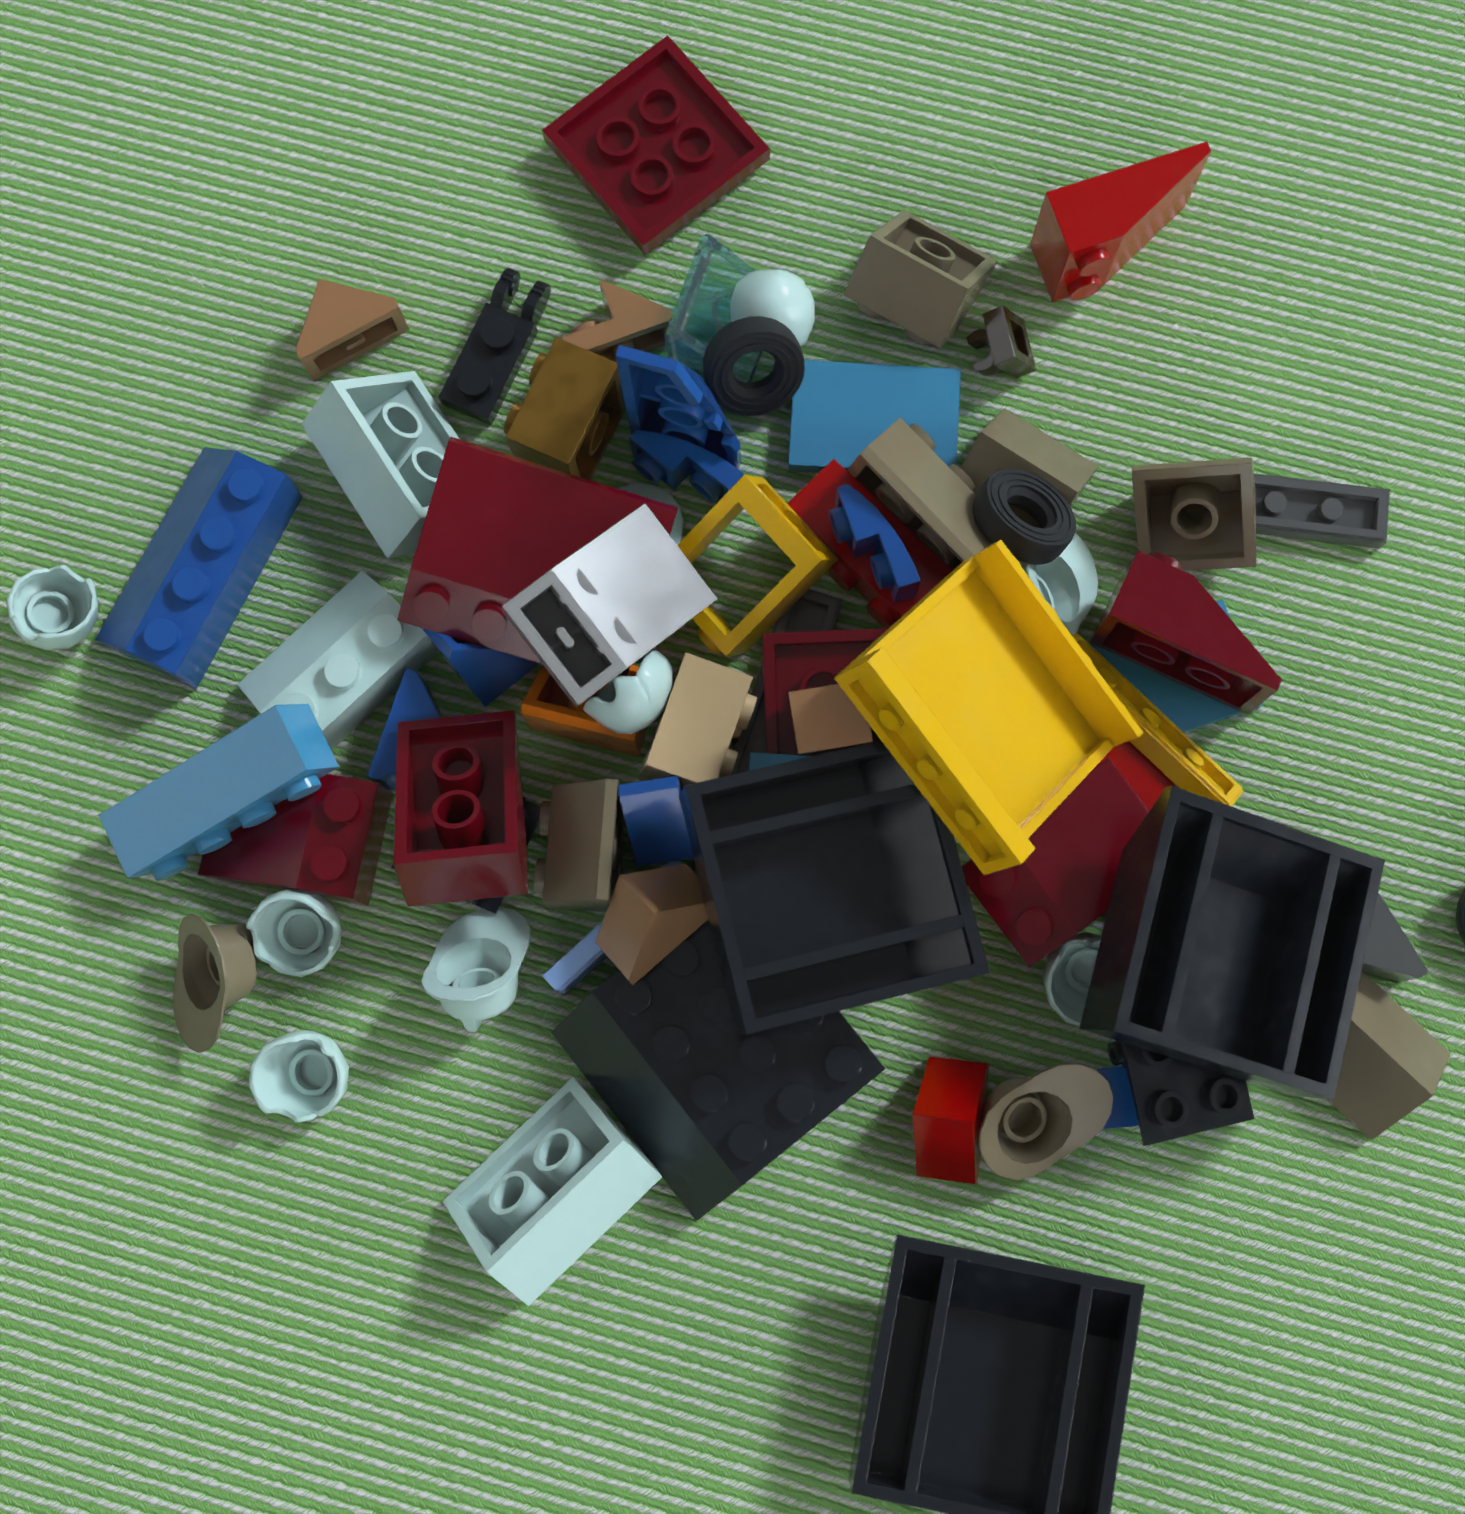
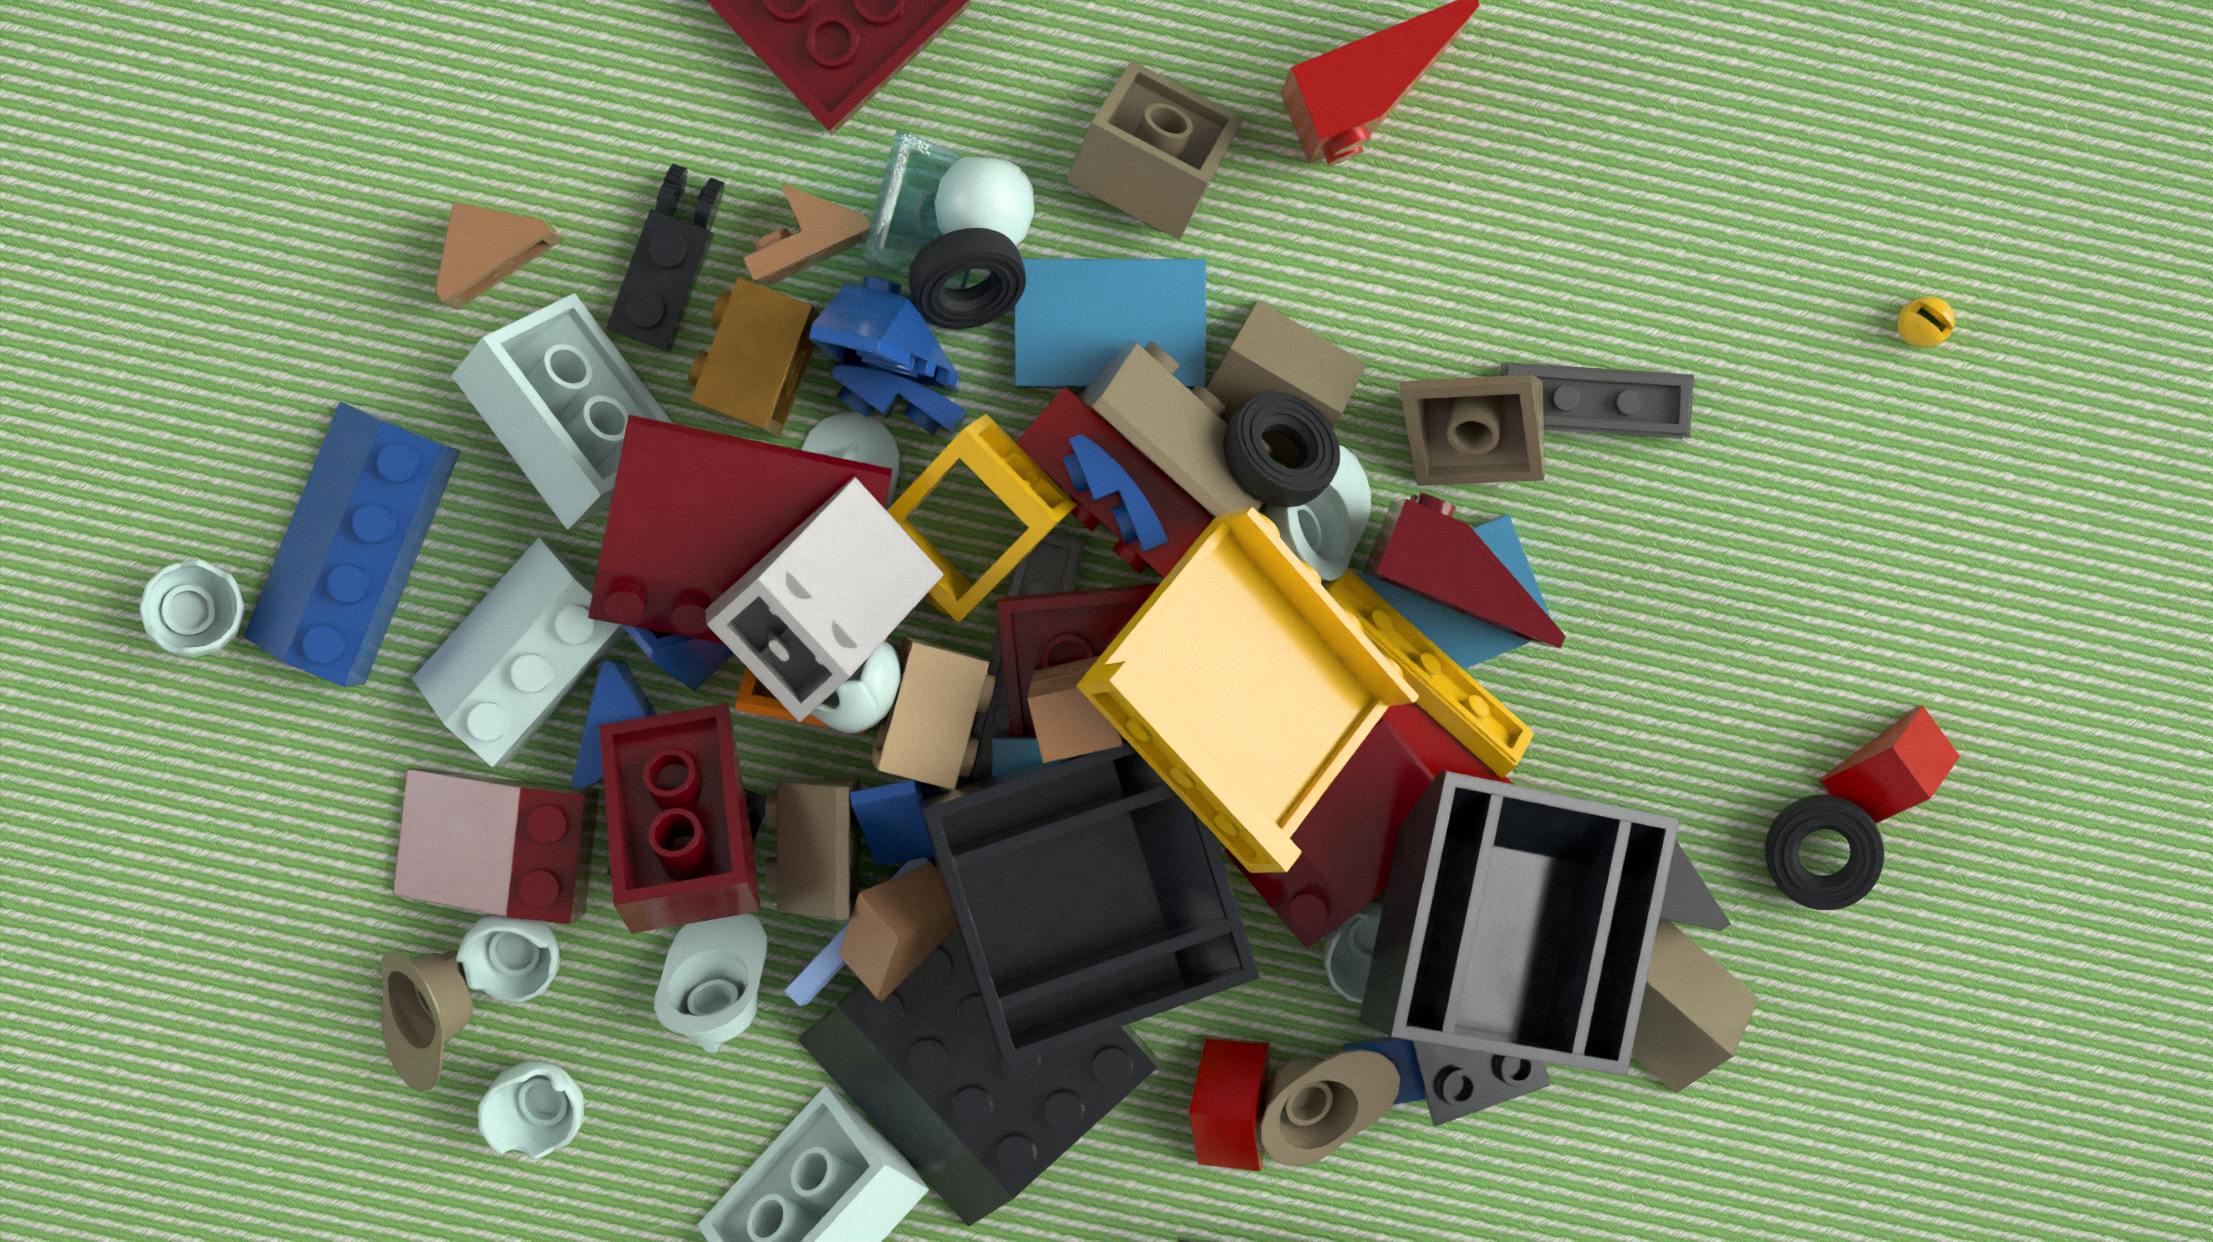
camera: 15 degrees left, 10 degrees up
(218, 791) = (410, 817): dark azure brick -> none
(1008, 344) = (1257, 225): dark brown tile -> none

